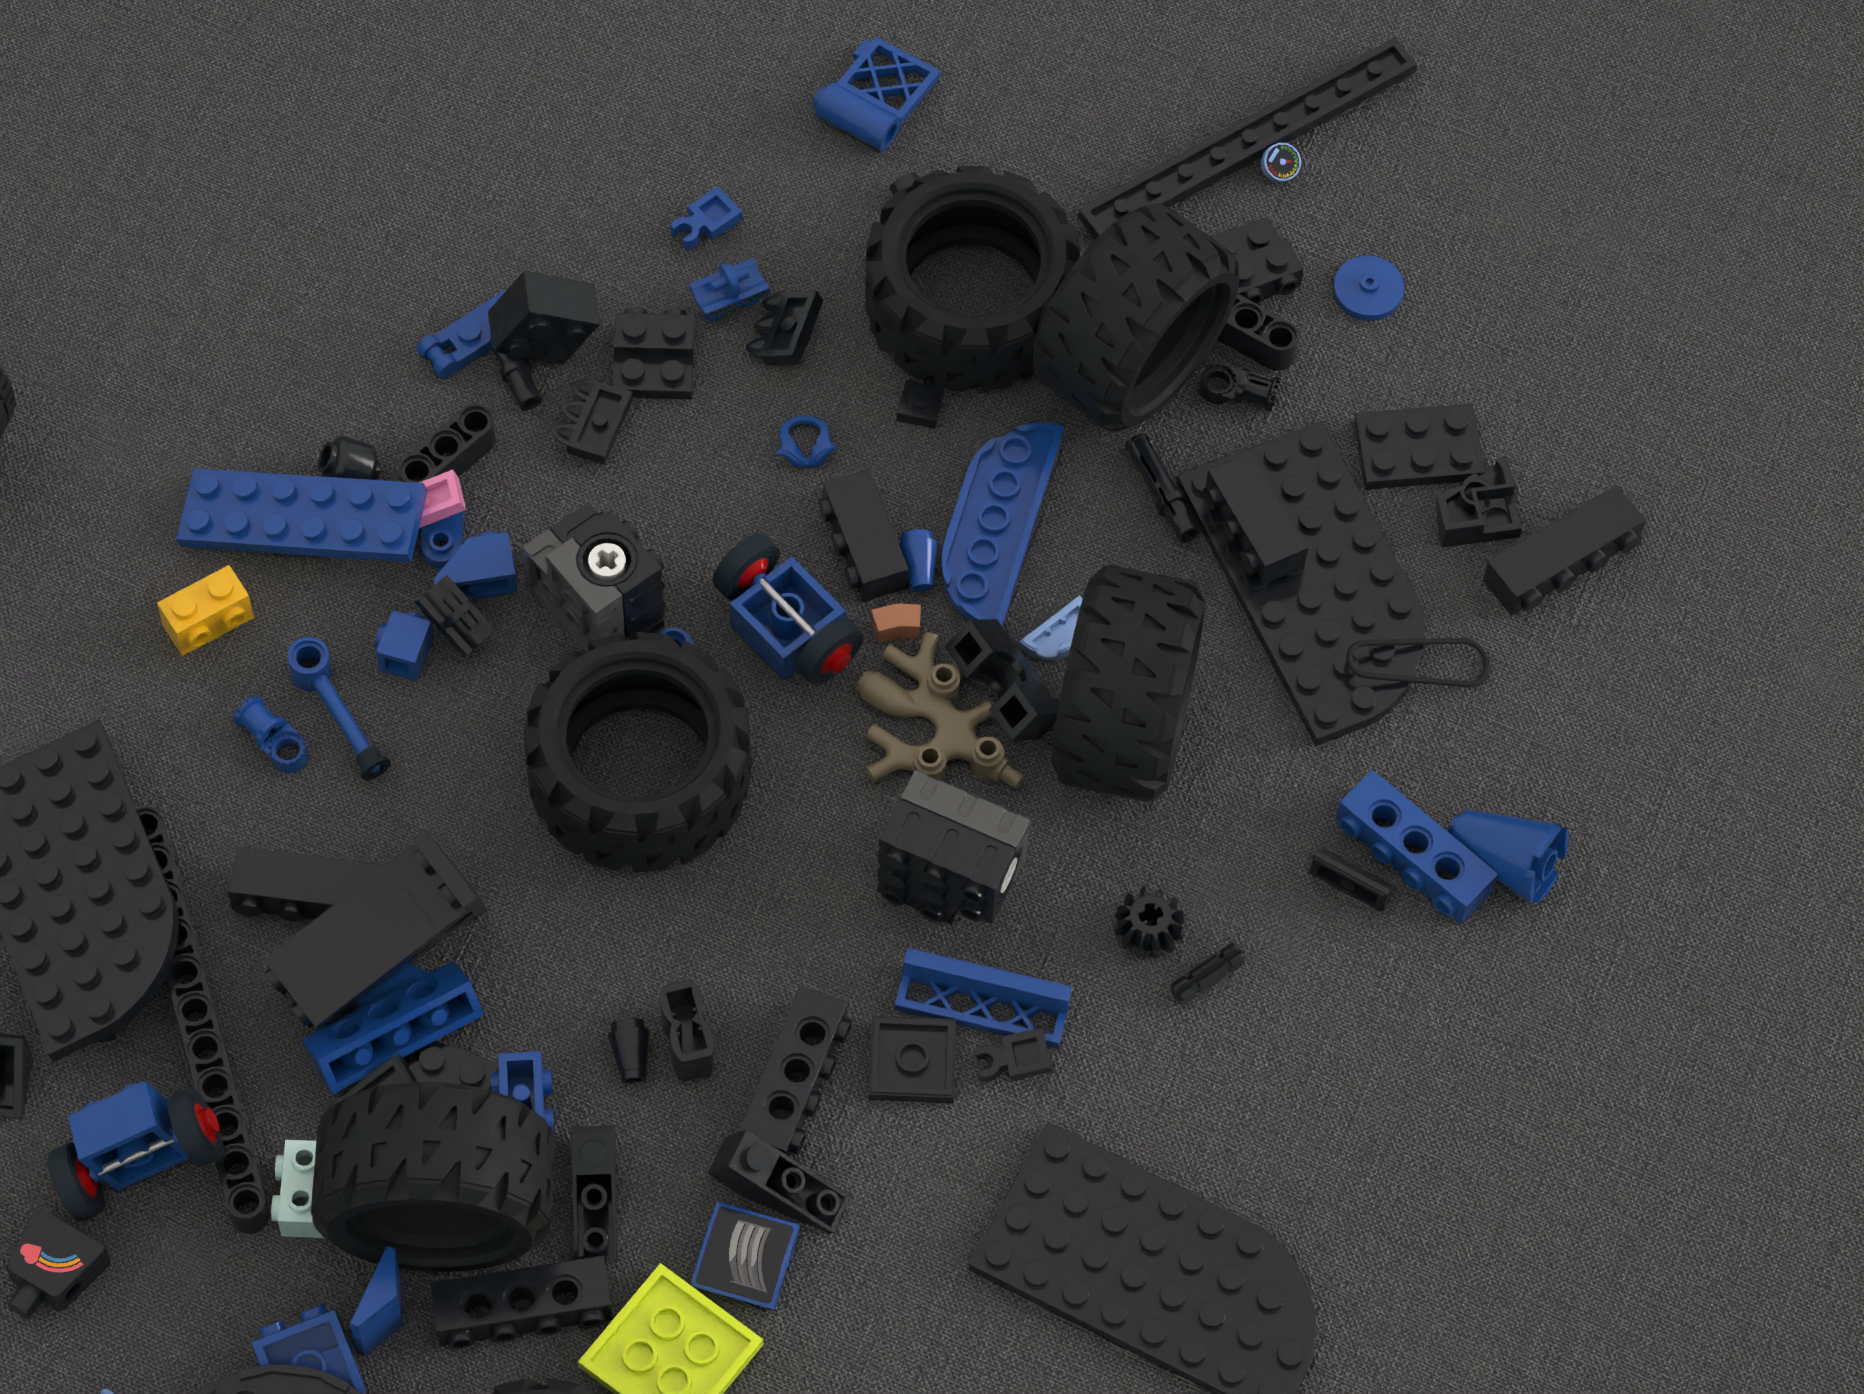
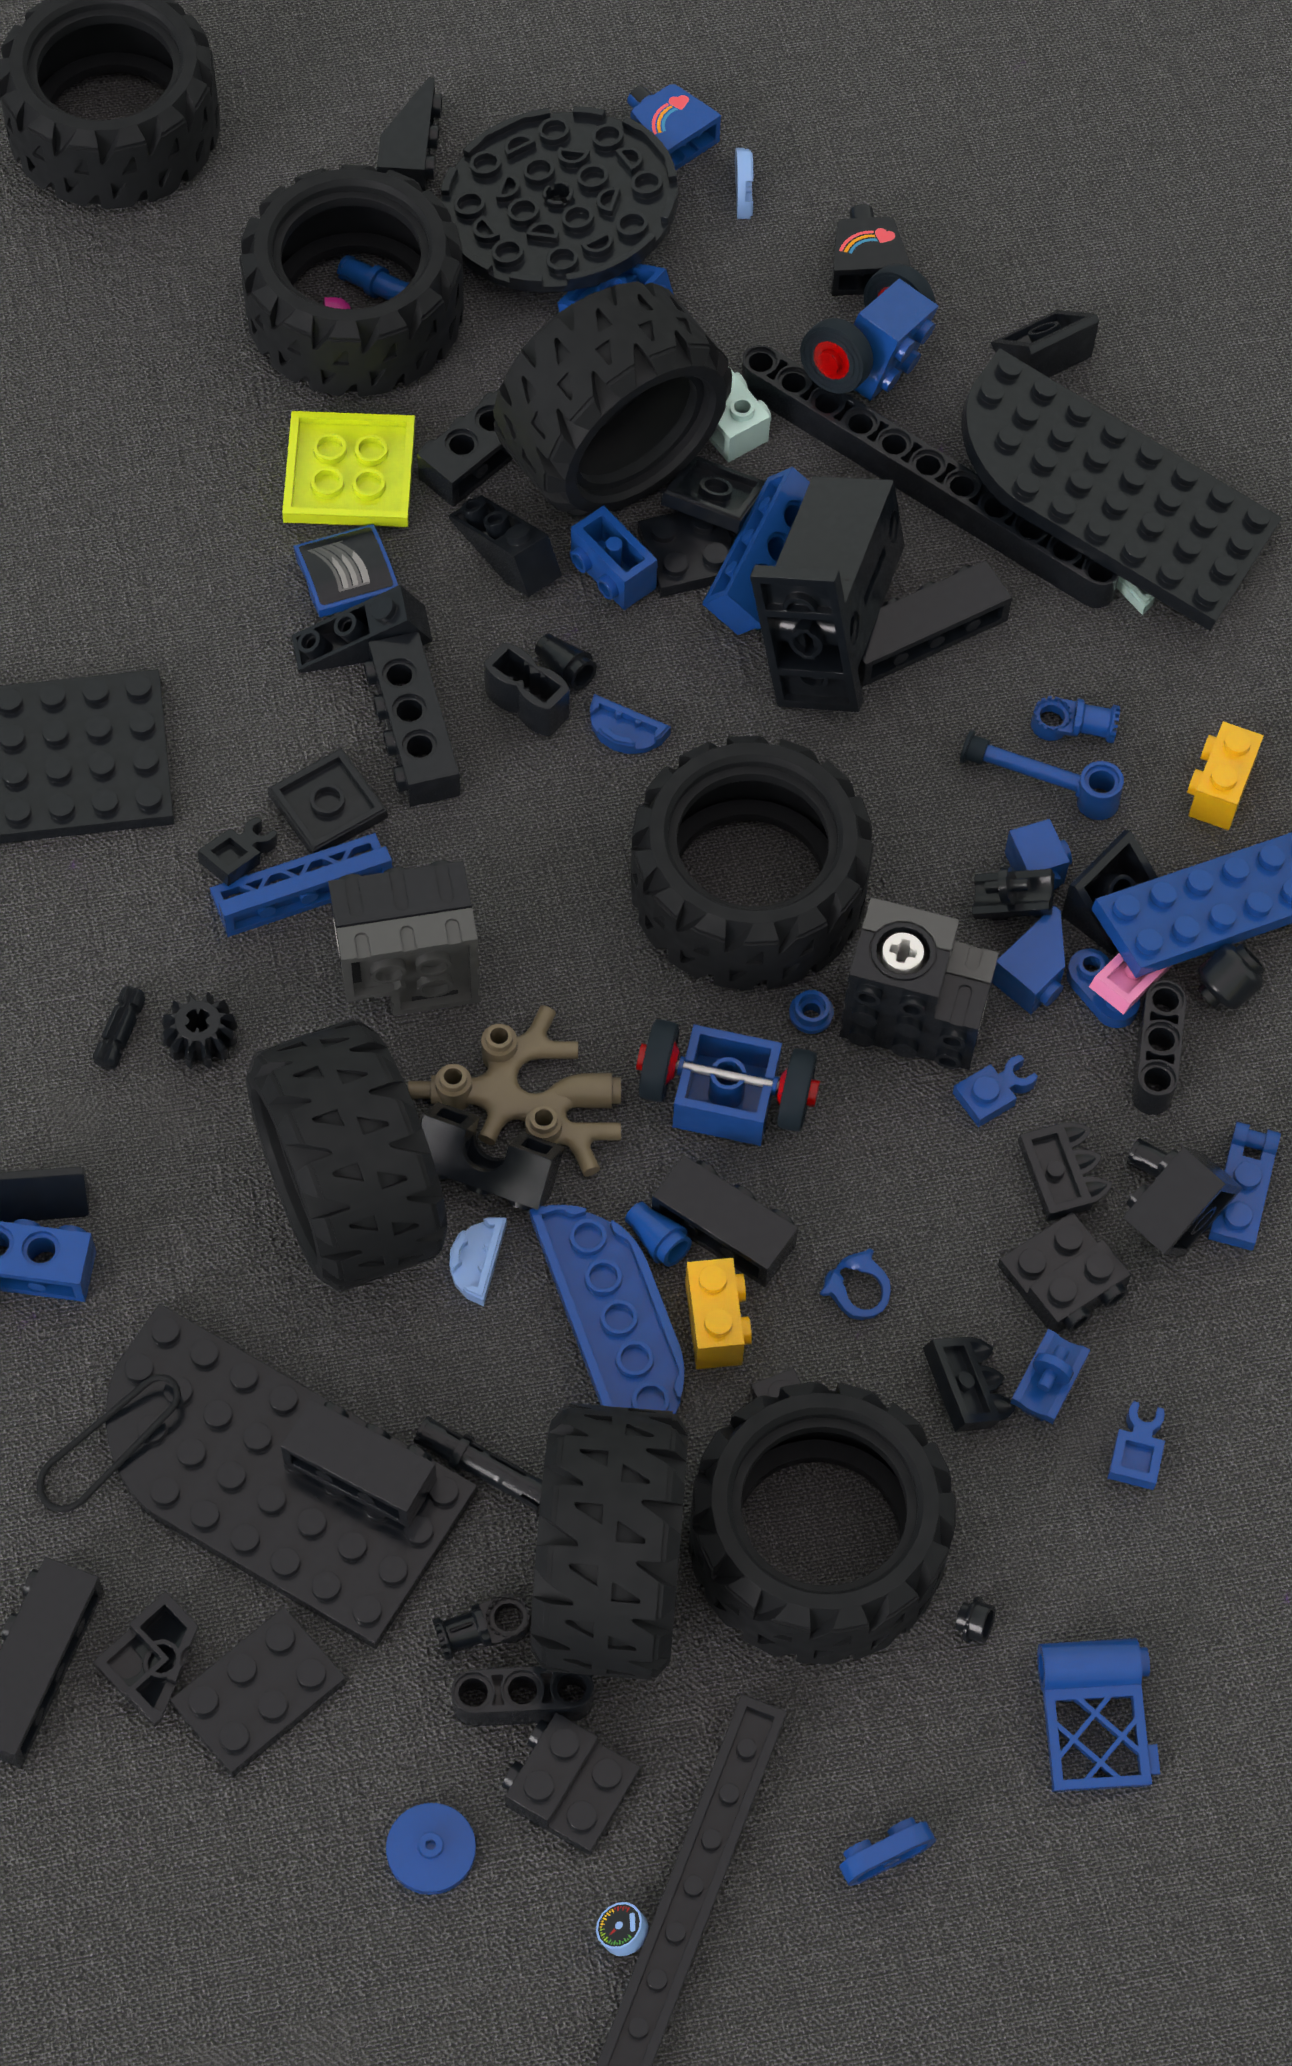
camera: 145 degrees right, 0 degrees up
(373, 587) = (1115, 869): none -> black slope
(599, 499) = (990, 1093): none -> blue plate
(627, 968) = (624, 728): none -> blue tile
(896, 622) = (632, 1164): nougat piece -> none
(924, 475) = (715, 1313): none -> yellow brick
(1079, 97) = (868, 1860): none -> blue plate

